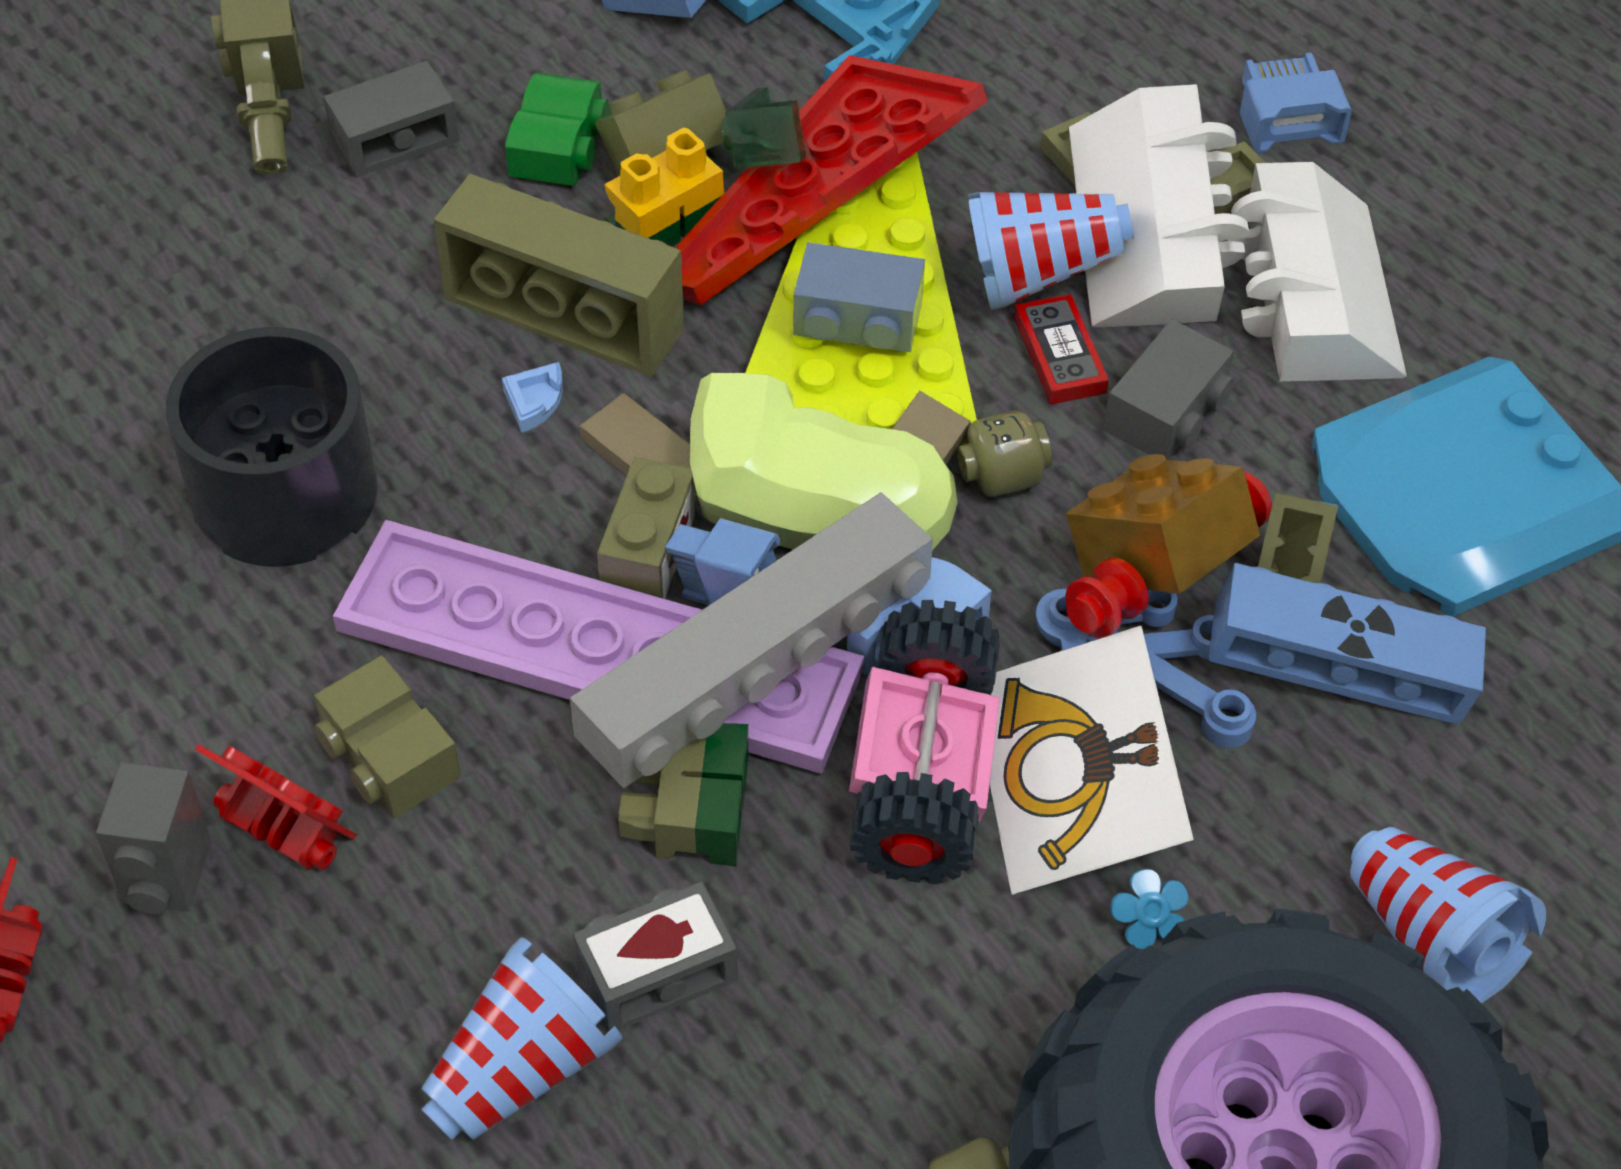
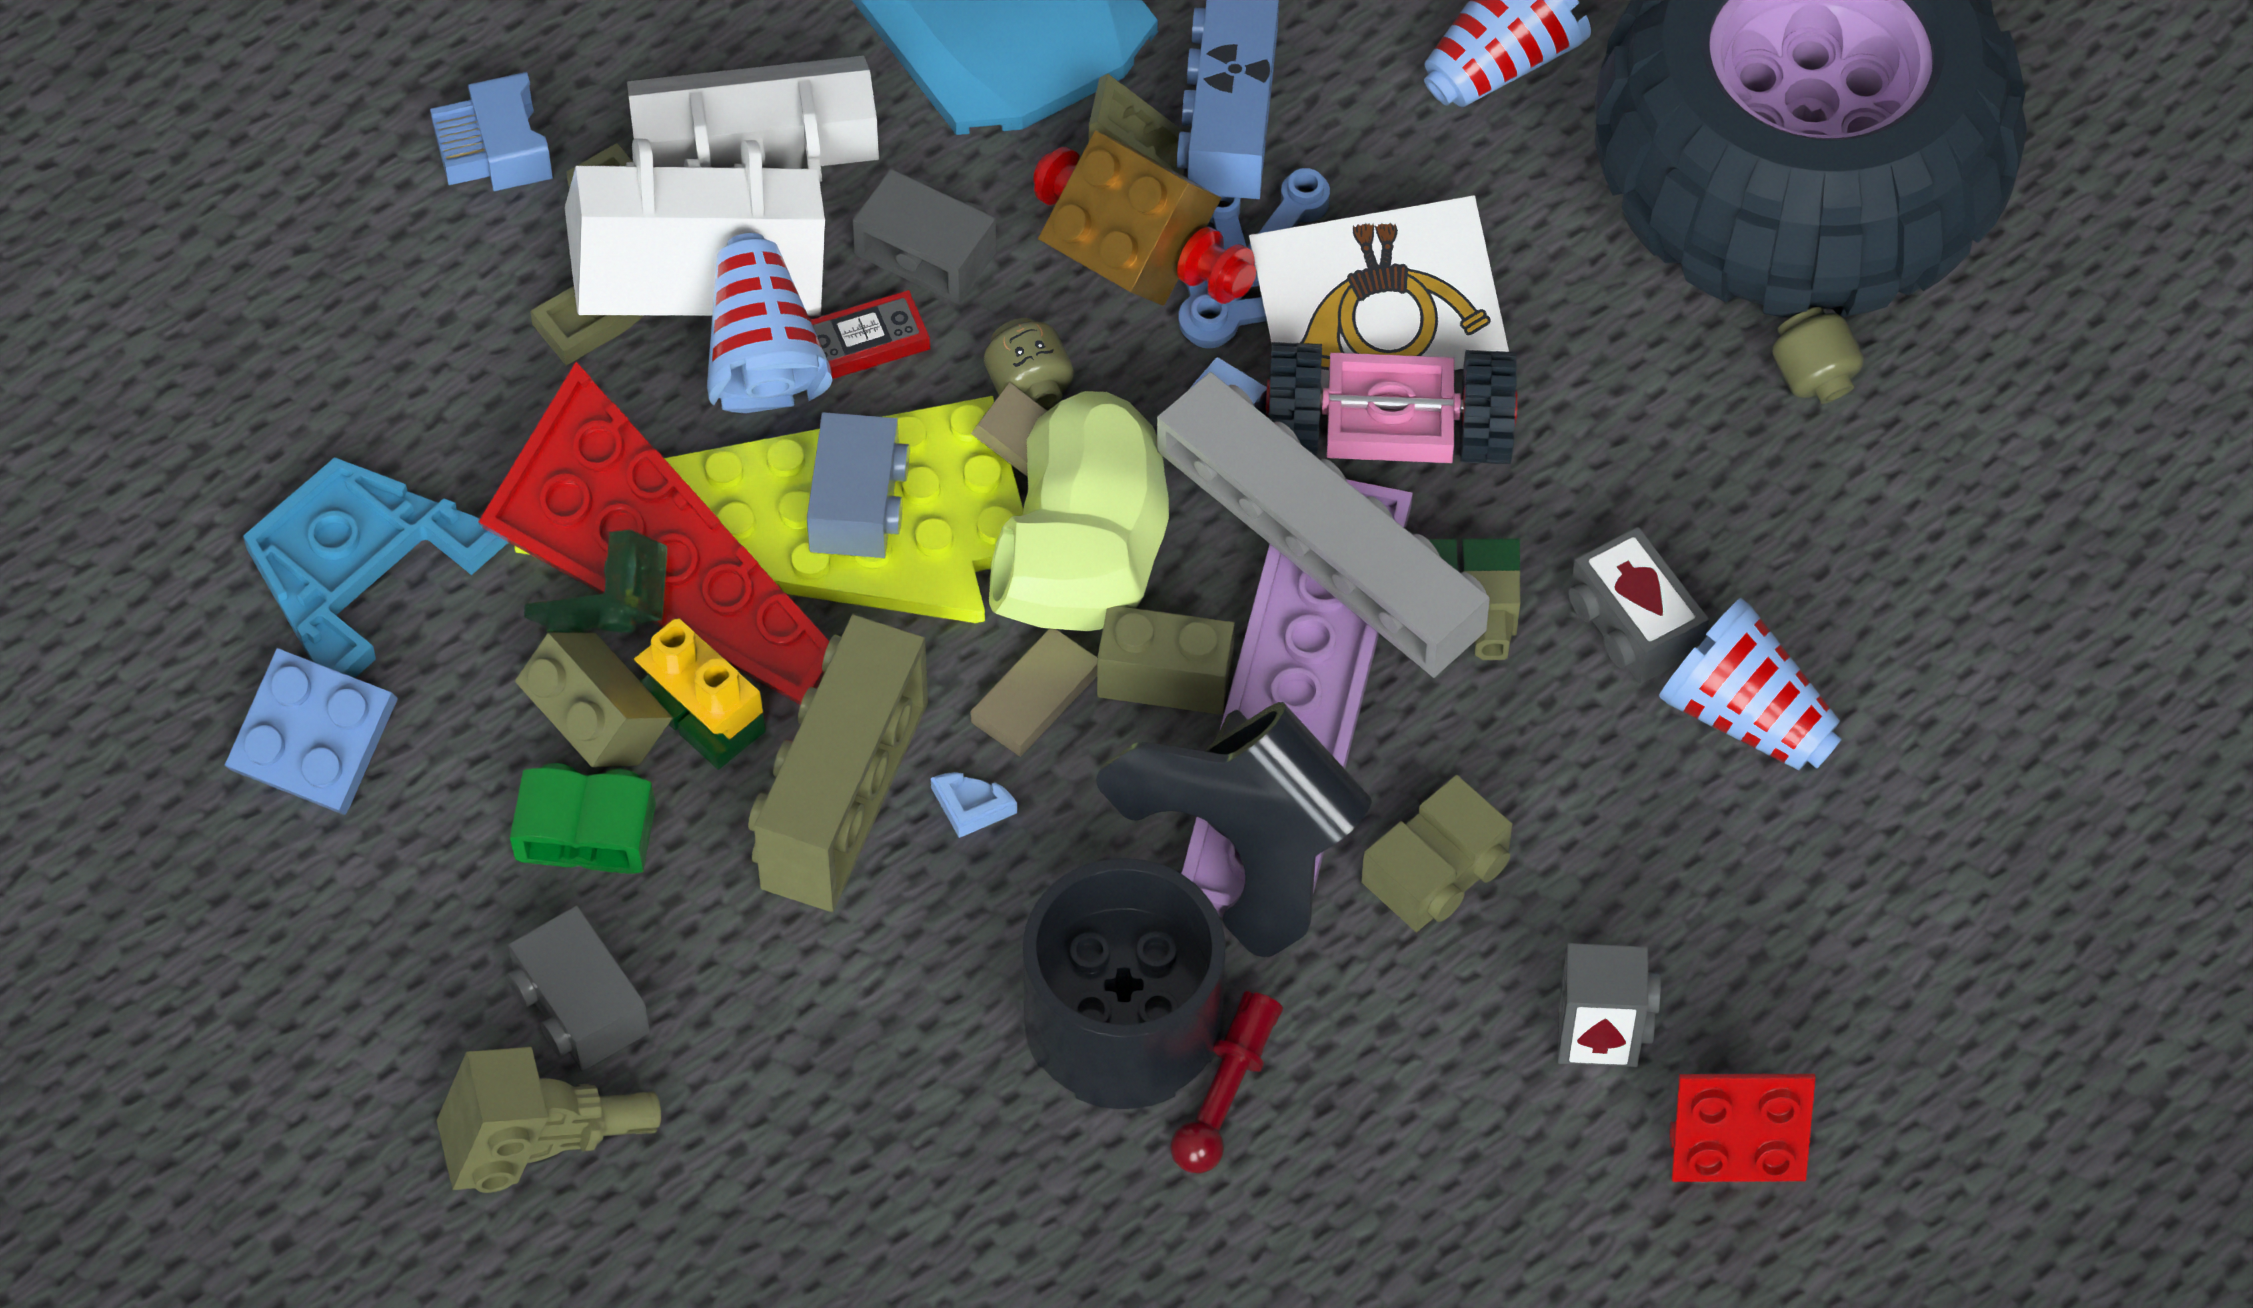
camera: 95 degrees left, 5 degrees up
(210, 561) = (1198, 1144): none -> dark red pin
(278, 810) = (1541, 920): red hinge -> none
(434, 549) = (1264, 790): none -> black piece
(719, 559) = (1224, 563): medium blue piece -> none
(1149, 908) = (1520, 248): dark azure plant -> none

